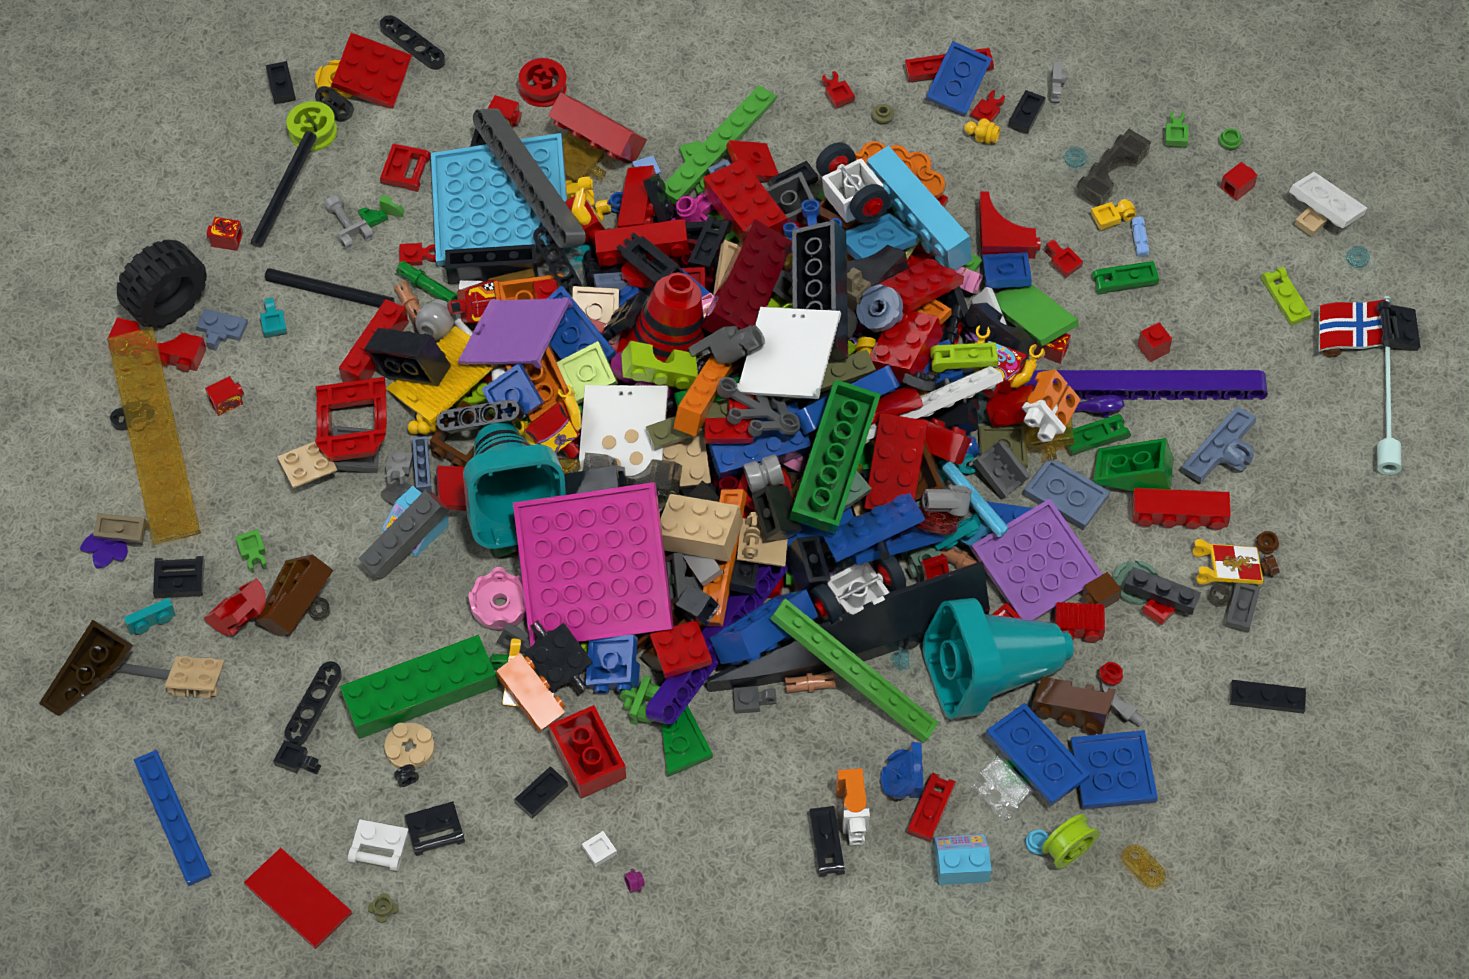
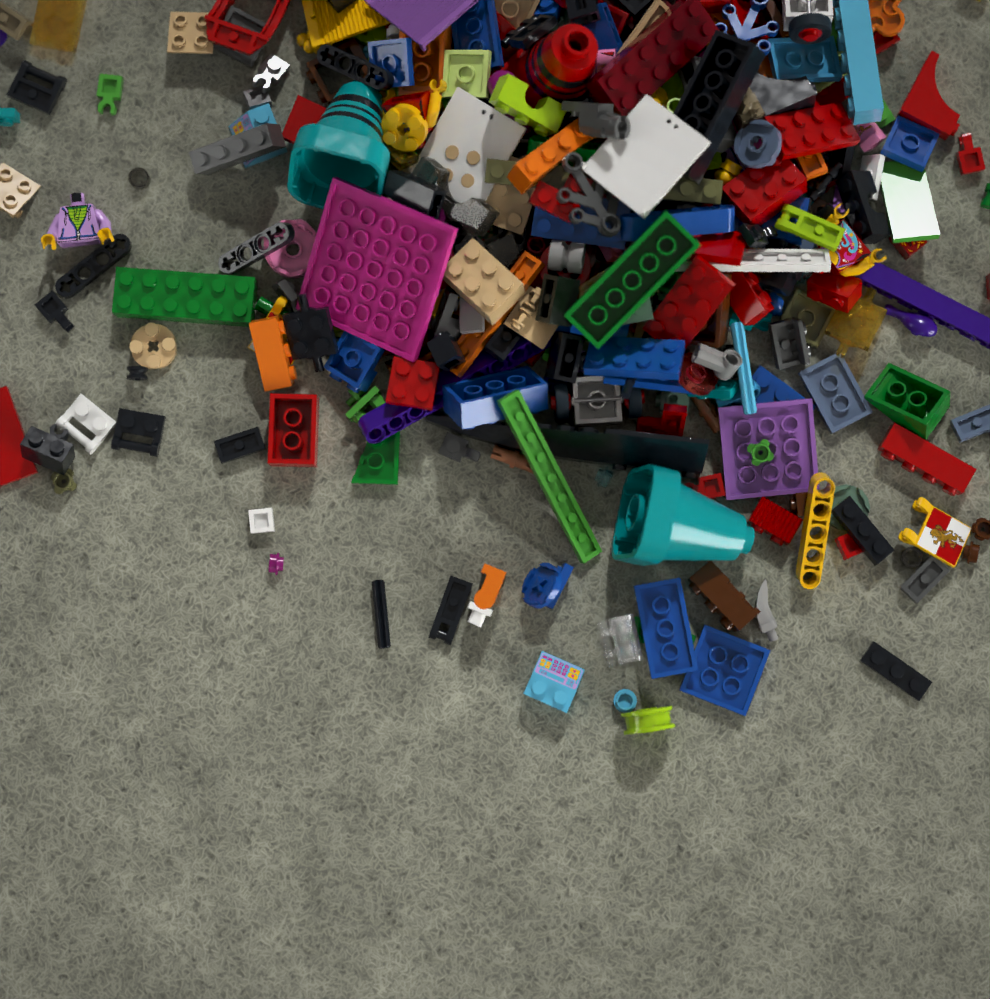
camera: 30 degrees right, 25 degrees up
(238, 608) = (66, 146): red brick -> none
(283, 672) = (78, 225): none -> torso
(293, 593) = (118, 157): reddish brown wedge -> none
(355, 879) = (48, 449): none -> black brick
(422, 464) = (291, 82): sand blue piece -> none
(463, 607) = (257, 251): none -> black beam
(563, 426) = (393, 133): none -> yellow plate
(762, 878) = (381, 614): none -> black axle
(931, 807) = (553, 624): red plate -> none
(1031, 557) = (767, 455): none -> bright green plate
(1048, 405) = (862, 311): hips -> none
(1098, 434) = (897, 349): green plate -> none
(1111, 673) = (777, 578): red plate -> none
(1119, 617) = (811, 520): none -> yellow beam
(1142, 866) = (699, 767): clear yellow plate -> none

